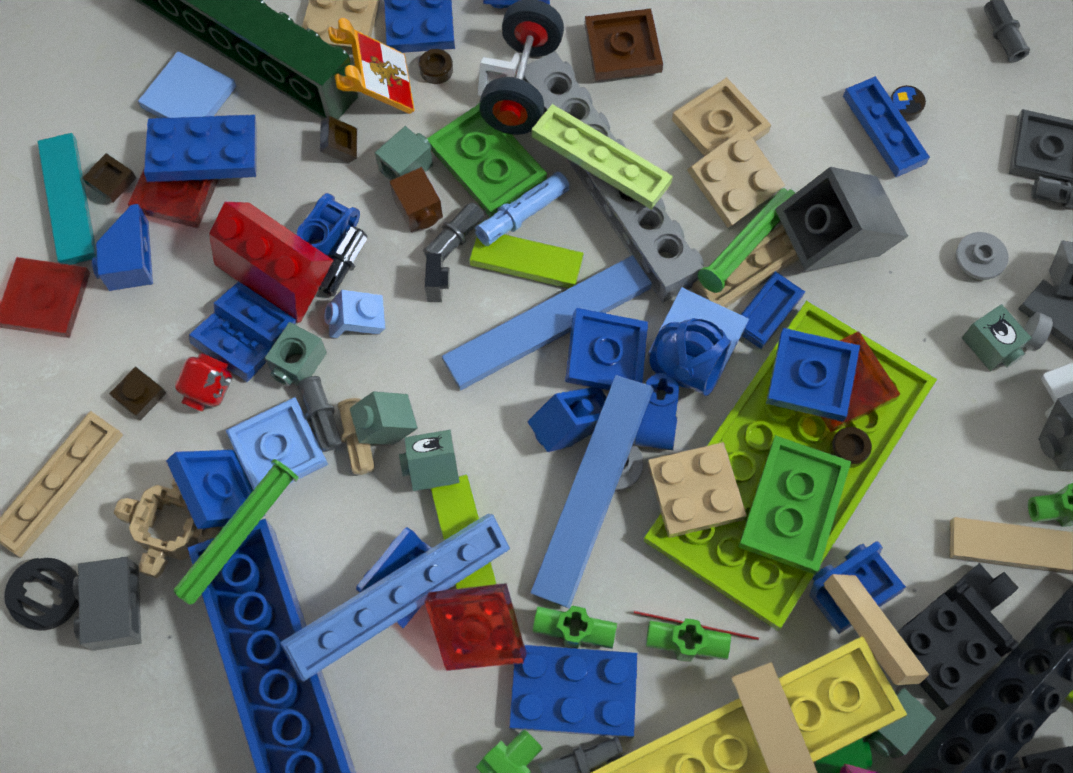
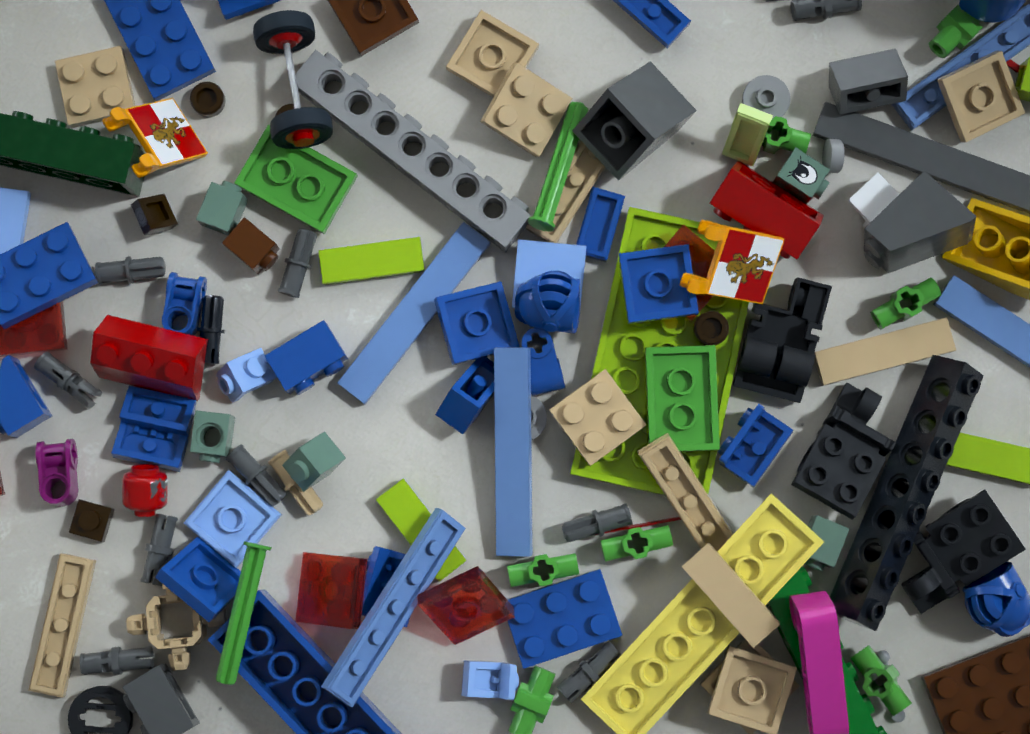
camera: 20 degrees left, 15 degrees up
(88, 539) = (116, 660): none -> dark grey pin
(130, 326) = (57, 468): none -> magenta piece
(182, 252) = (67, 379): none -> dark grey pin
(193, 440) = (159, 547): none -> dark grey pin
(291, 180) = (130, 270): none -> dark grey axle
(341, 555) = (331, 590): none -> clear red plate
(422, 320) = (307, 358): none -> blue brick
(429, 460) = (368, 481): sand green brick -> none
(436, 277) = (301, 312): black plate -> none
(467, 723) = (489, 679): none -> light blue bracket
(493, 69) = (275, 96): white panel -> none
(510, 216) = (343, 228): light blue pin -> none
(602, 156) = (401, 146): yellowish green plate -> none
(653, 602) = (597, 523): none -> dark grey axle
(763, 601) = (685, 492): none -> tan tile
(876, 629) = (779, 480): tan tile -> none
(908, 385) = (740, 264): none -> flag
(923, 492) = (780, 346): none -> black plate
(950, 352) = (766, 209): none -> red slope
(954, 273) = (747, 134): none -> yellowish green tile
(979, 288) = (788, 138): none -> bright green axle

